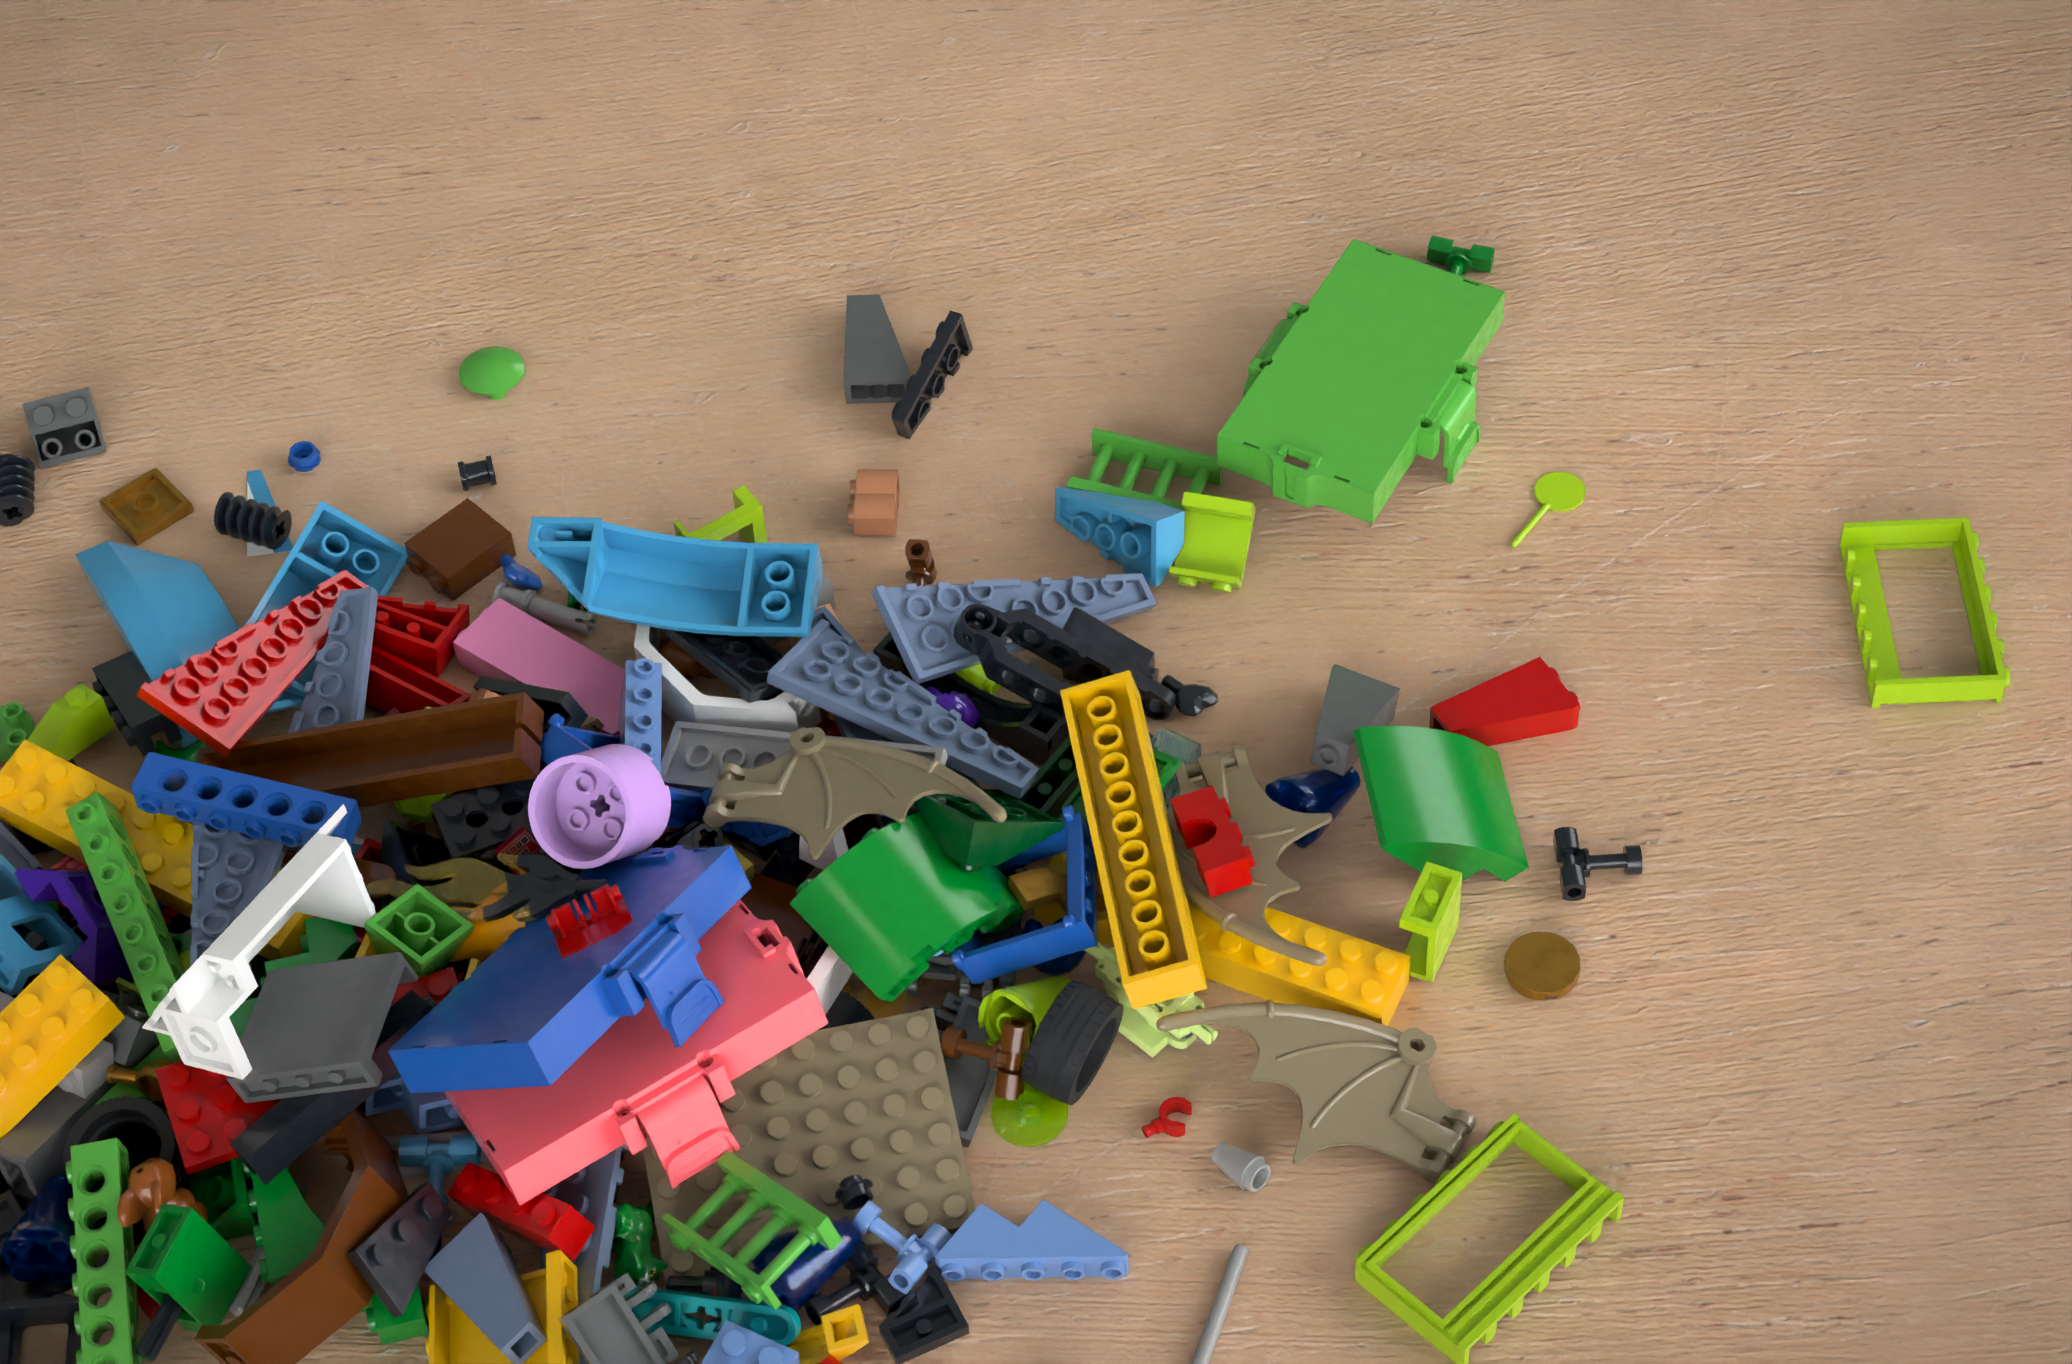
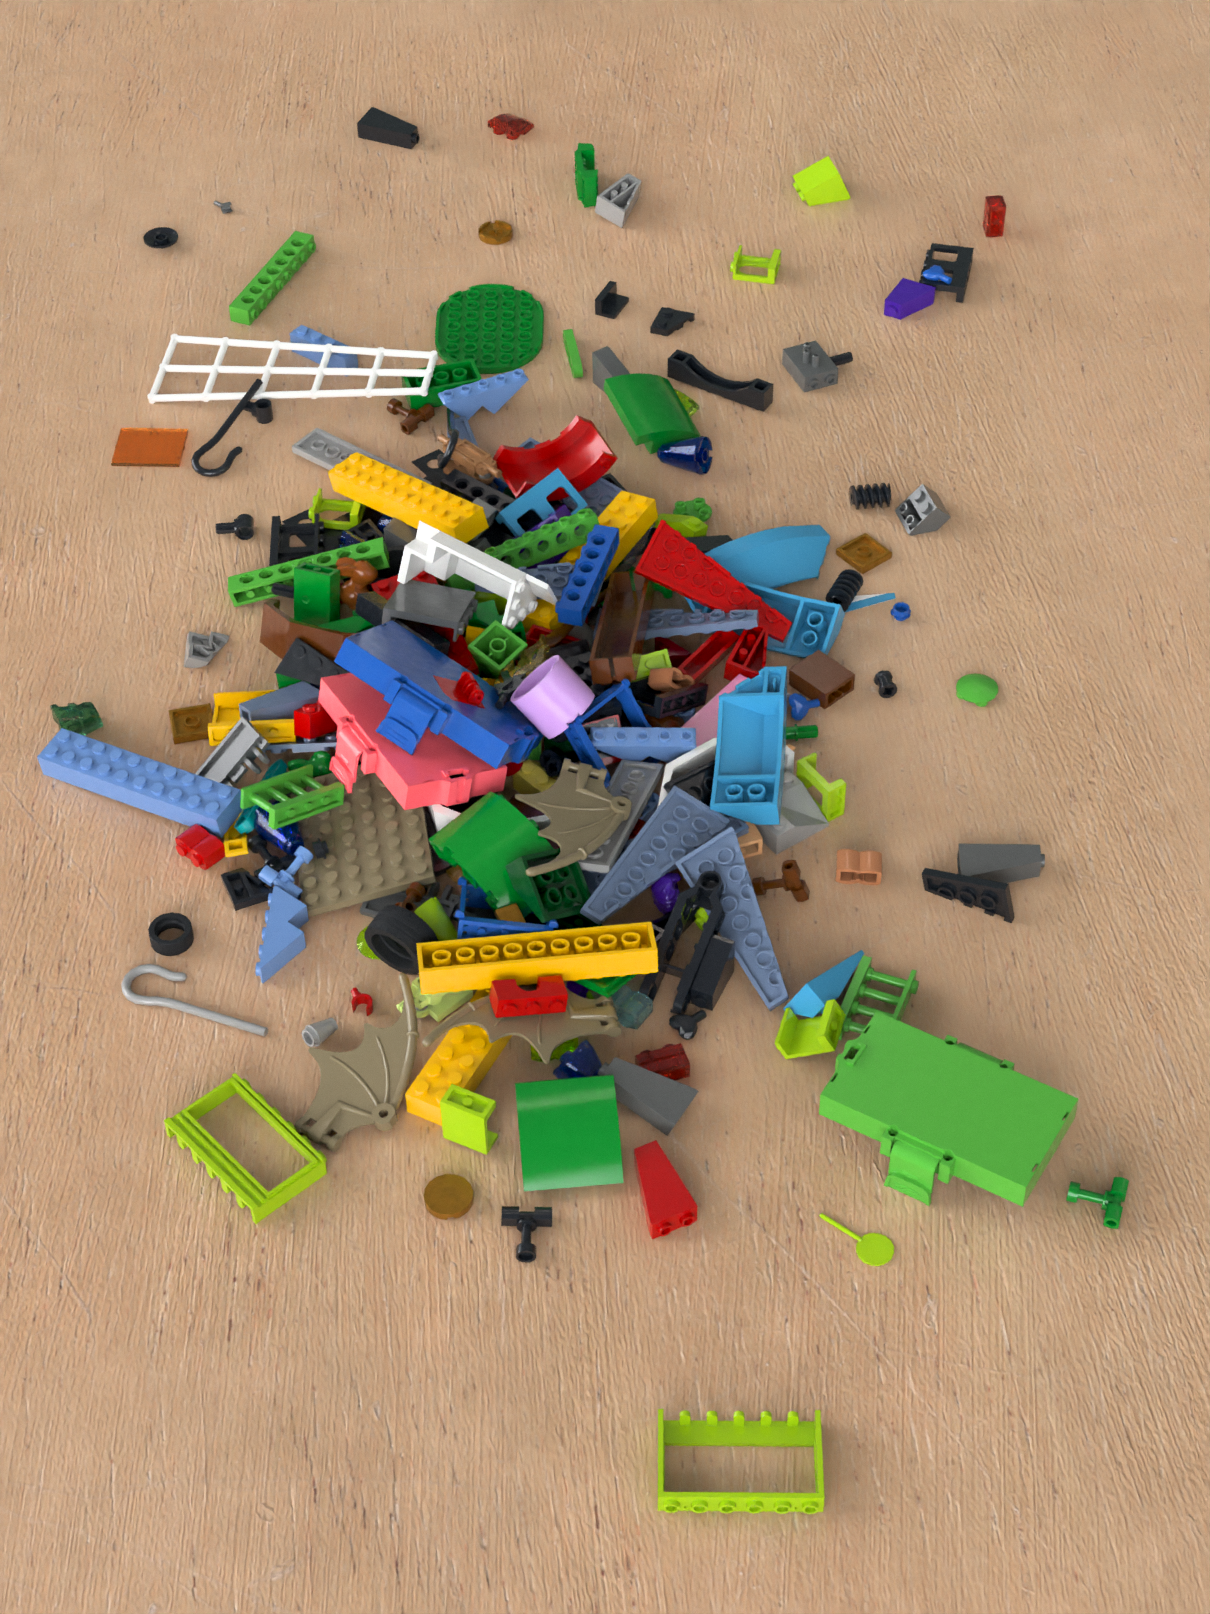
camera: 90 degrees right, 5 degrees down
(1277, 718) = (666, 1061): none -> clear red brick

